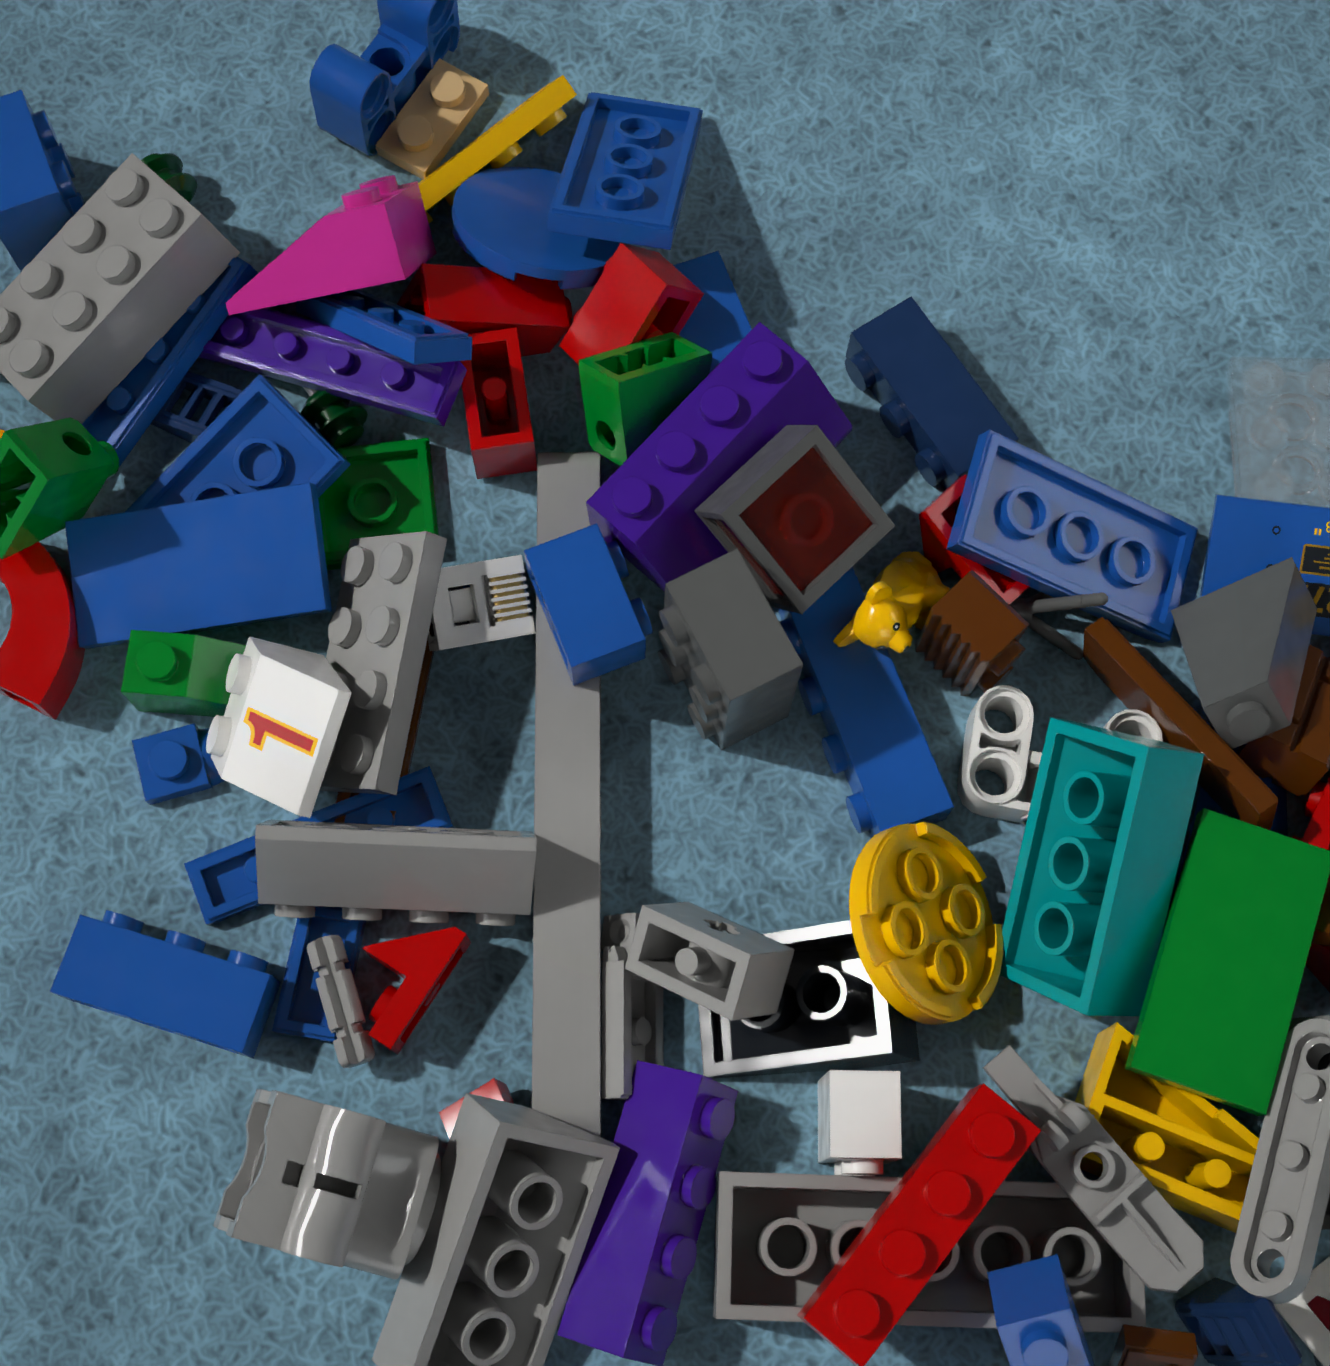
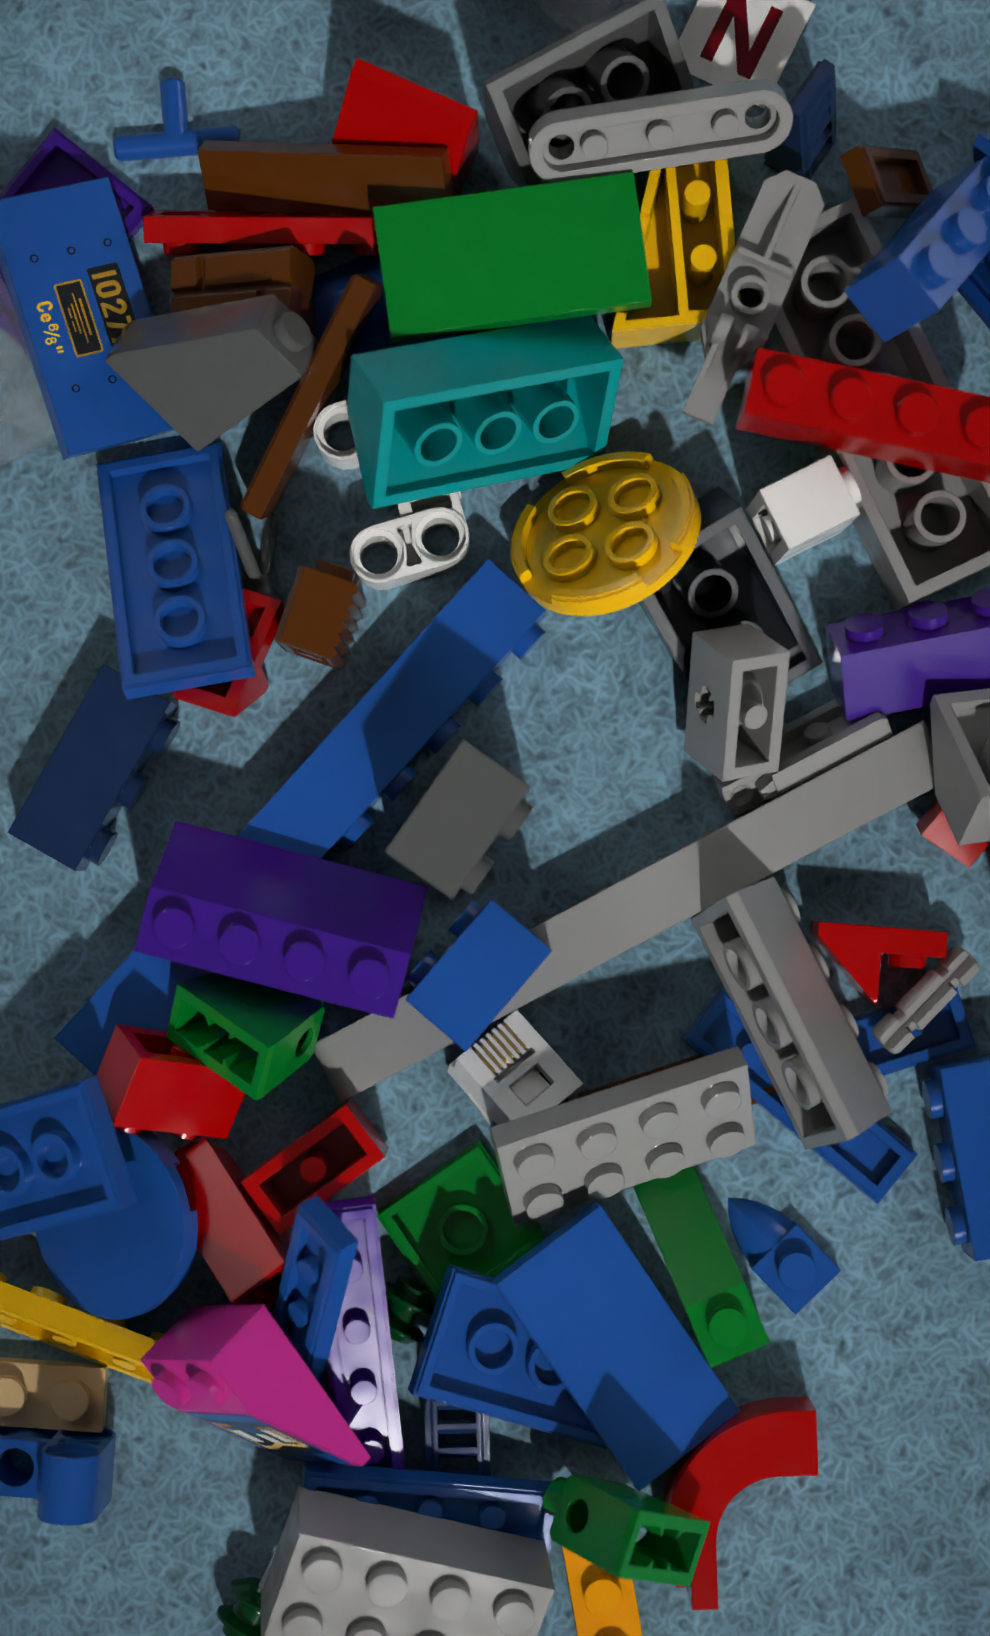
camera: 110 degrees left, 15 degrees up
(278, 724) = (727, 1184): white slope -> none
(796, 517) = (309, 822): piece -> none
(894, 603) = (316, 700): yellow animal -> none

